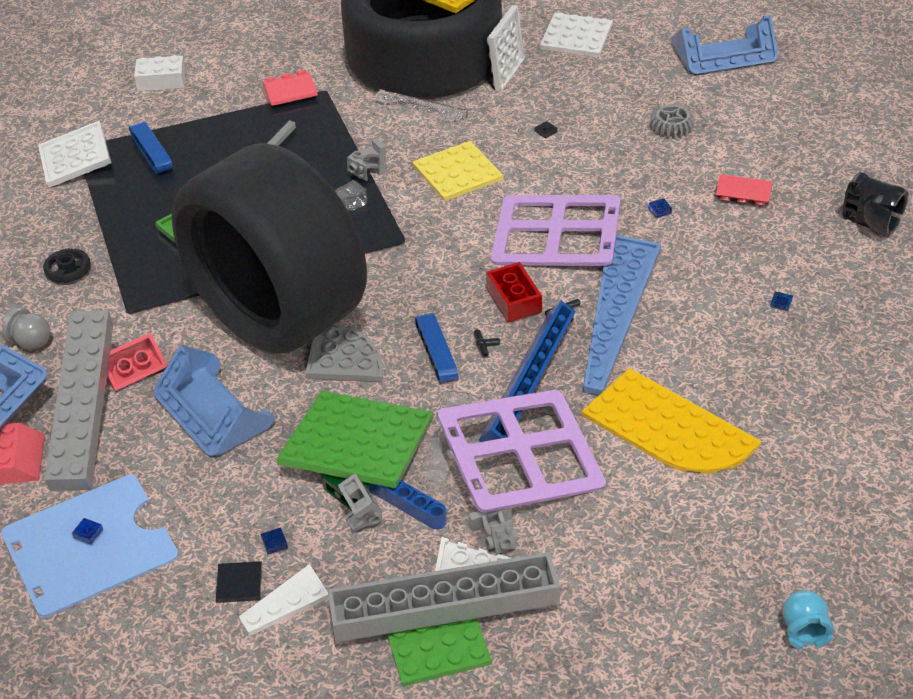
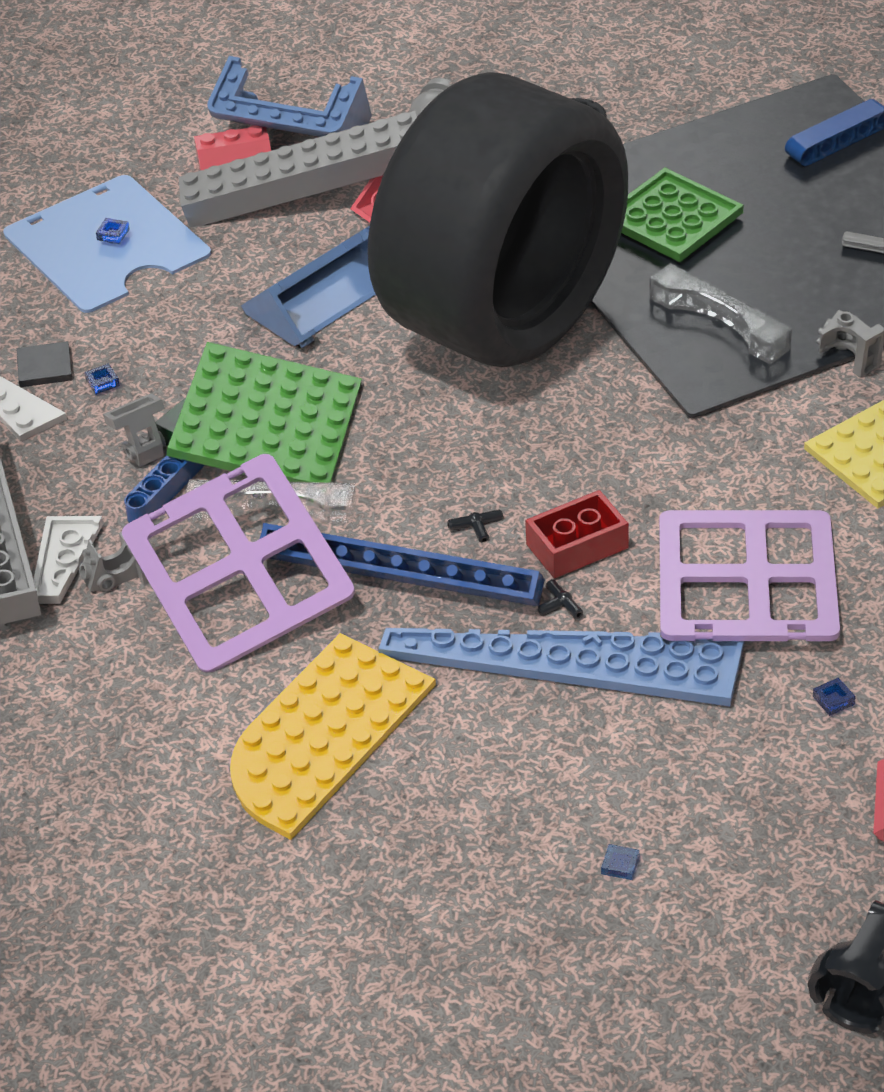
camera: 85 degrees right, 0 degrees up
(74, 154) = (808, 71): white plate -> none
(343, 356) = (434, 389): light grey plate -> none
(436, 345) = (454, 472): blue beam -> none

